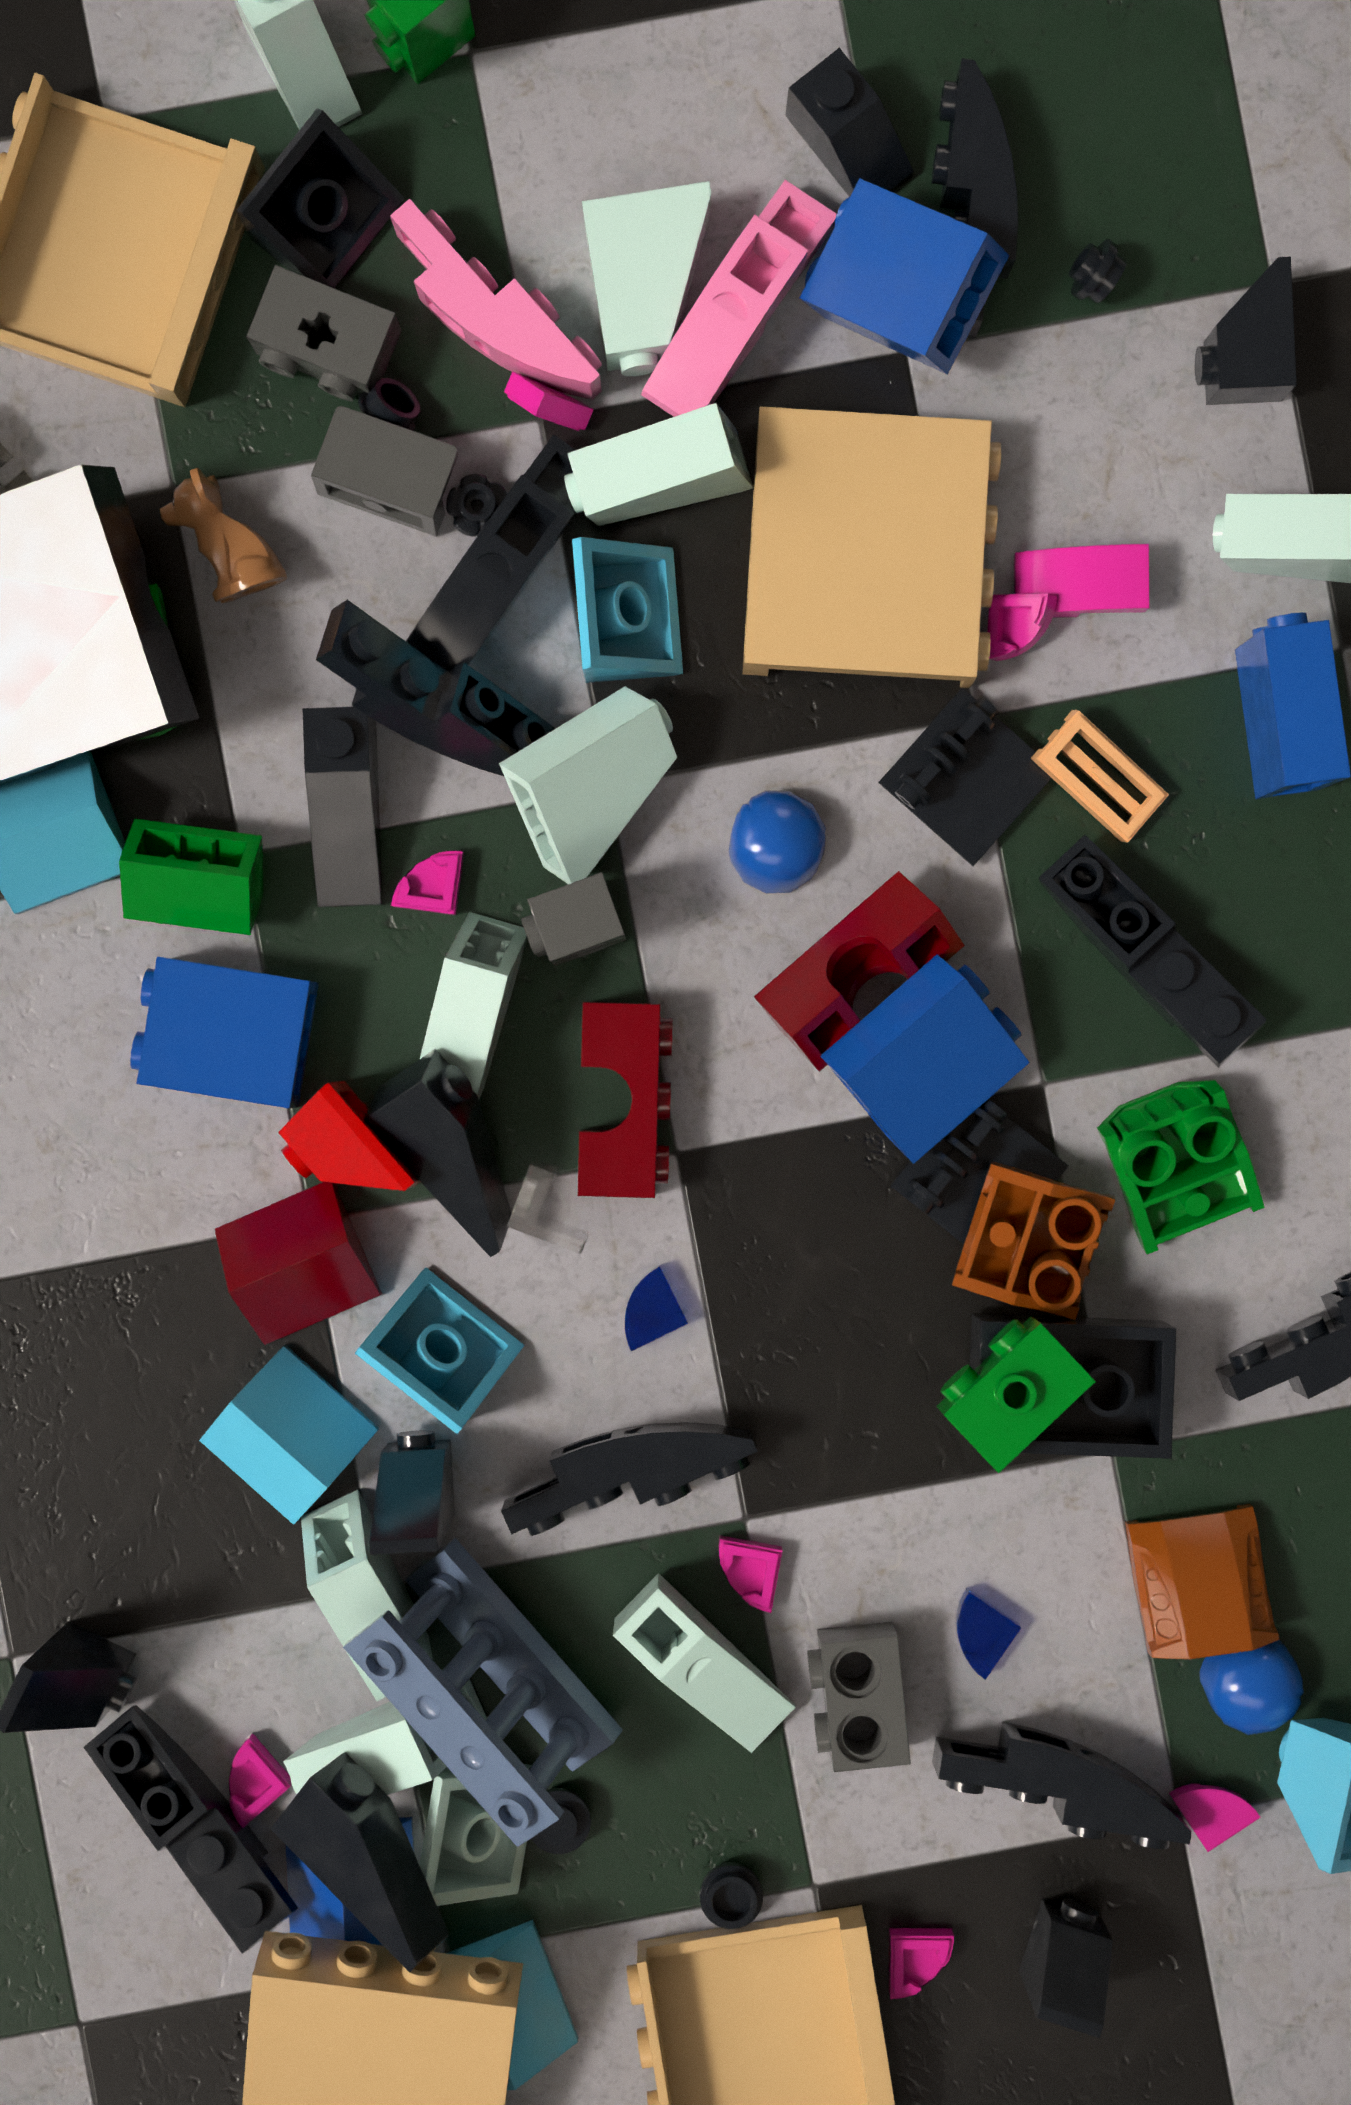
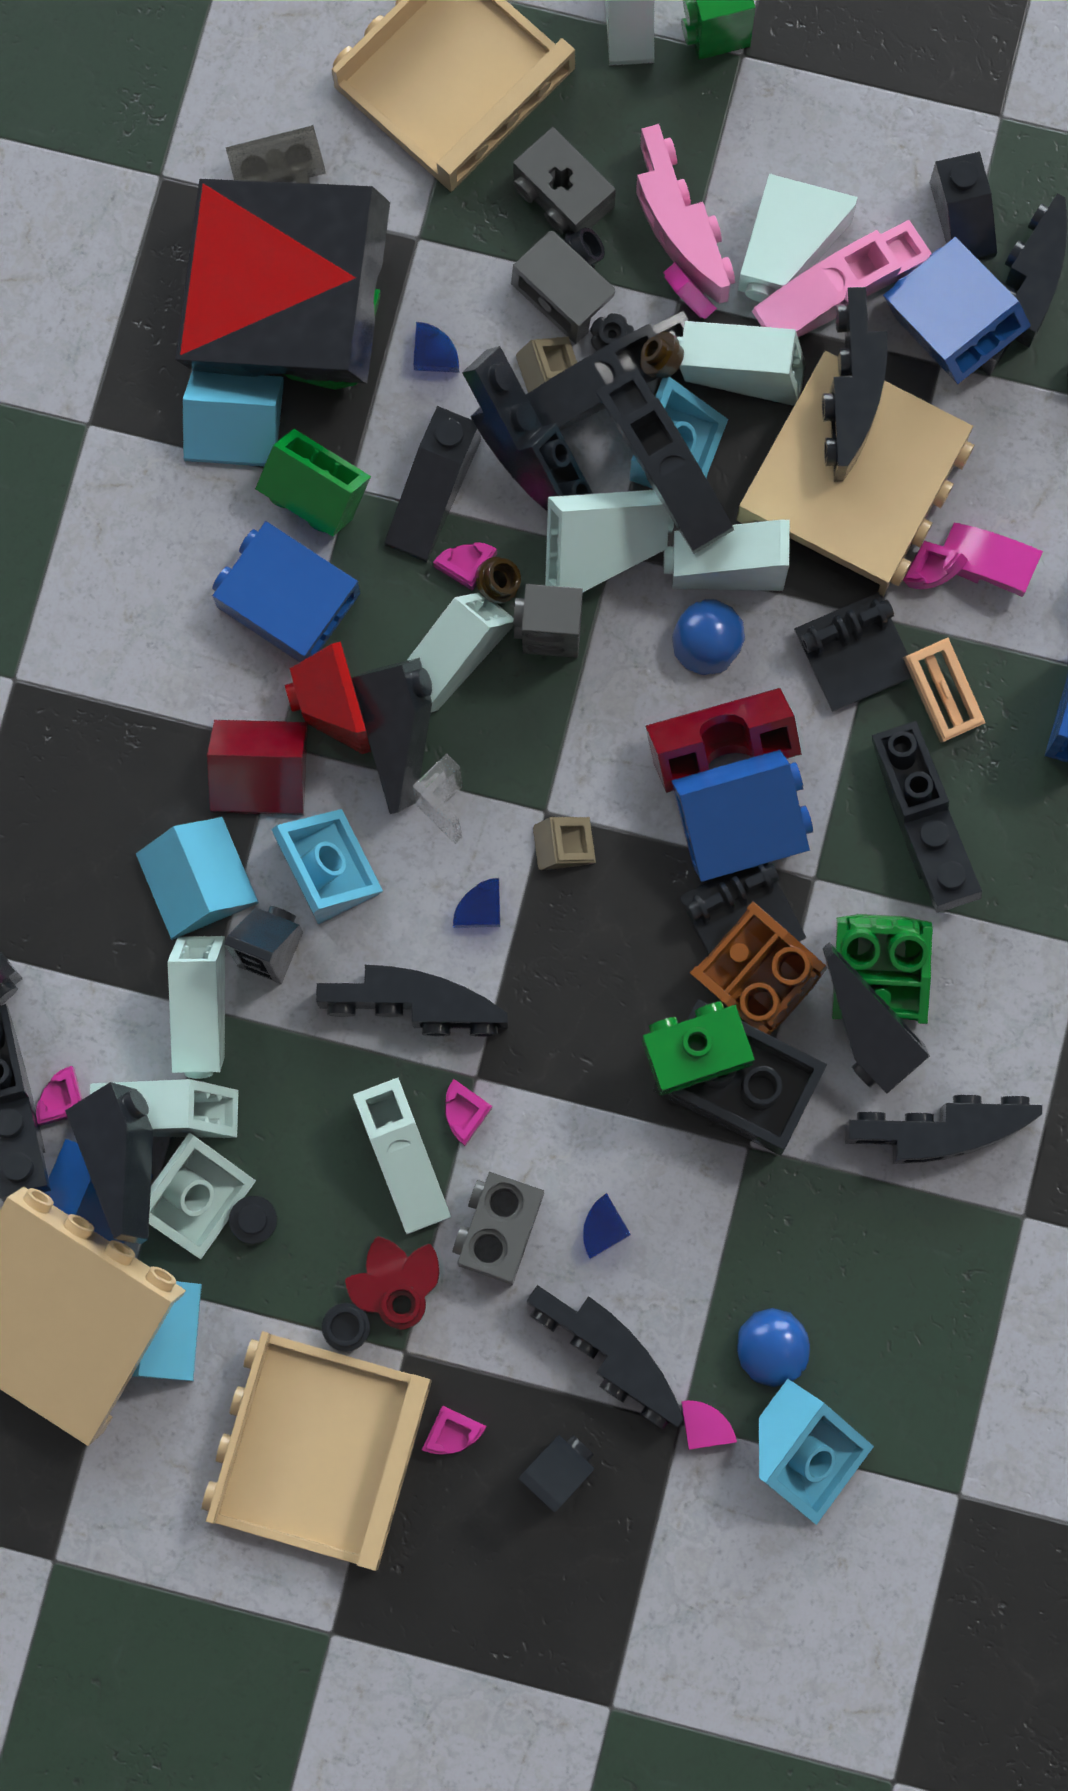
camera: 25 degrees right, 10 degrees down
(235, 550) = (441, 294): medium nougat animal -> none
(262, 628) = (434, 350): none -> clear blue tile
(319, 203) = (599, 102): black slope -> none
(411, 578) = (544, 359): none -> dark tan slope
(493, 880) = (506, 574): none -> dark brown plate
(516, 1660) = (273, 1084): sand blue fence -> none
(559, 513) = (661, 355): none -> dark brown plate
(627, 652) = (665, 460): none -> black slope
(627, 1157) = (511, 792): dark red arch -> none
(718, 1183) = (563, 842): none -> dark tan slope
(757, 1807) = (395, 1275): none -> dark red plate
(761, 731) = (745, 559): none -> light aqua slope
(833, 459) = (858, 390): none -> black slope
(1201, 1584) = (769, 1257): dark orange slope -> none
(1221, 1258) = (877, 1036): none -> black slope

